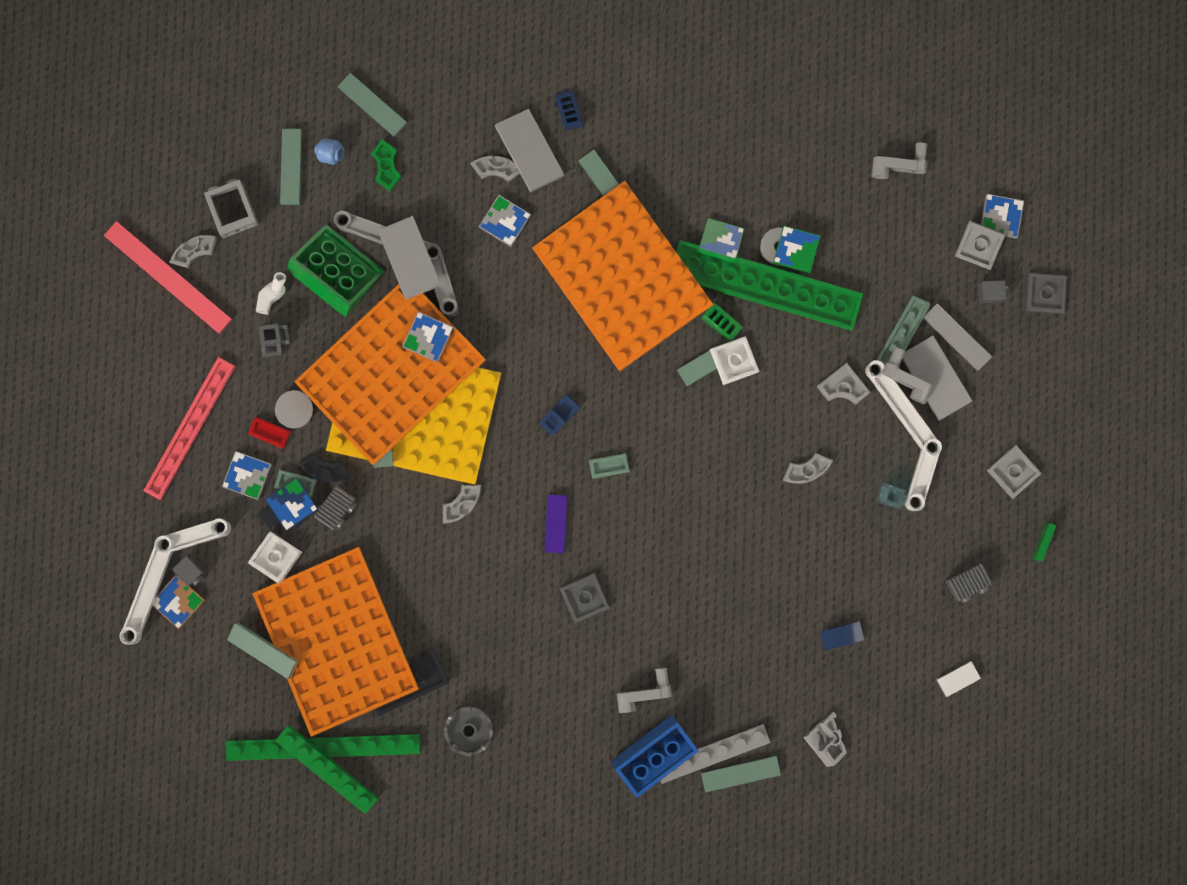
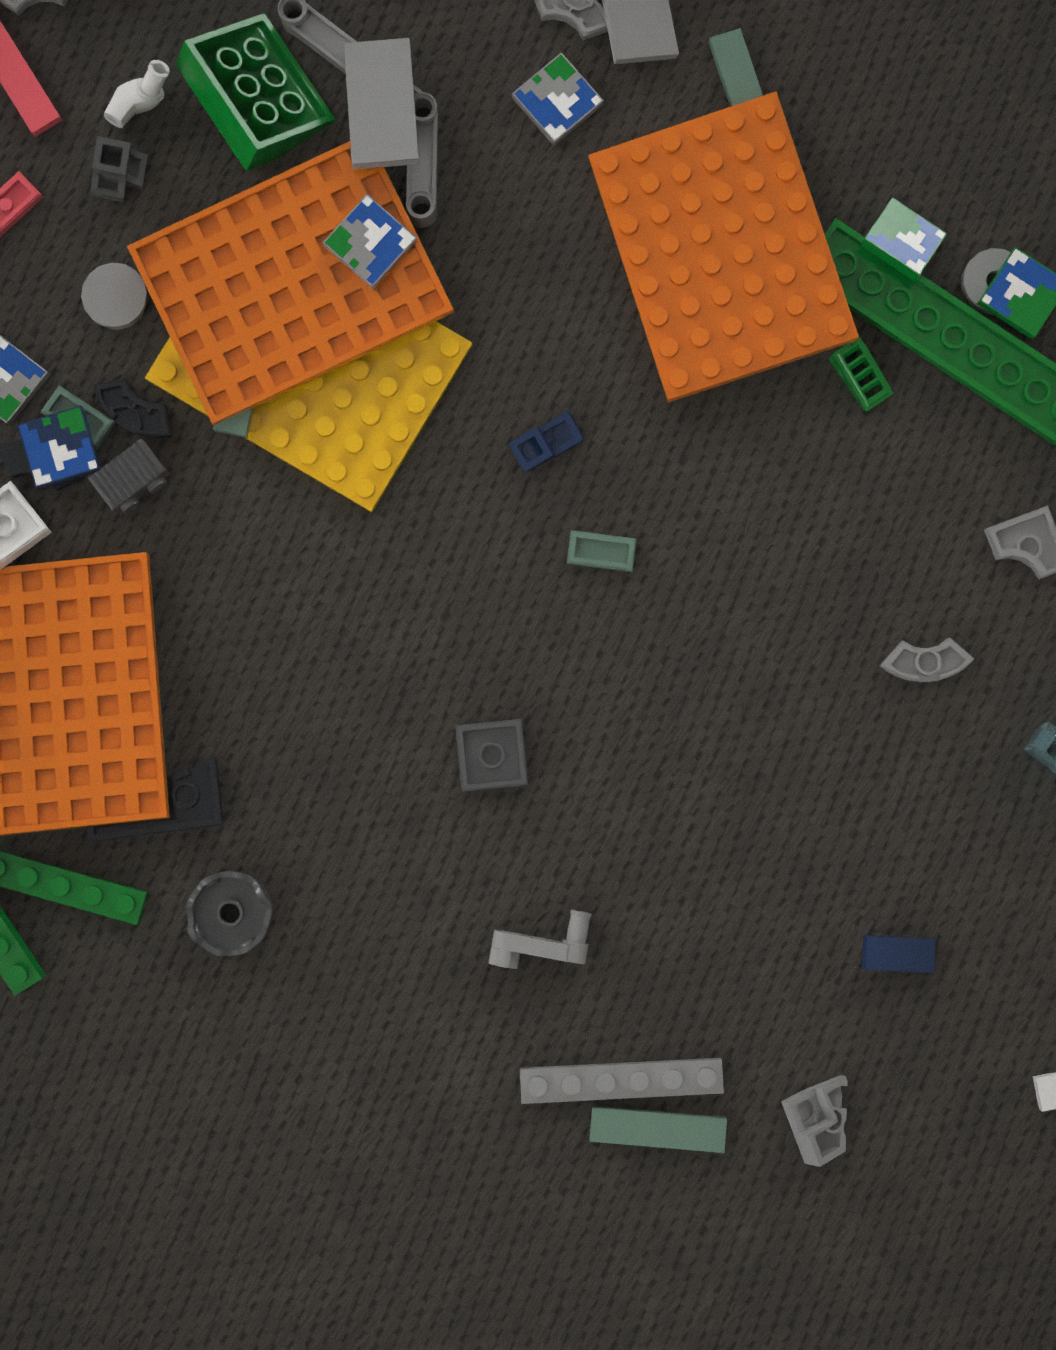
camera: 15 degrees right, 0 degrees up
(269, 432) = (62, 321): red tile -> none
(462, 504) = (339, 538): light grey tile -> none
(555, 524) = (483, 618): dark purple tile -> none
(654, 756) = (523, 1054): blue slope -> none
(697, 368) = (798, 438): sand green tile -> none
(734, 360) = (863, 443): white tile -> none

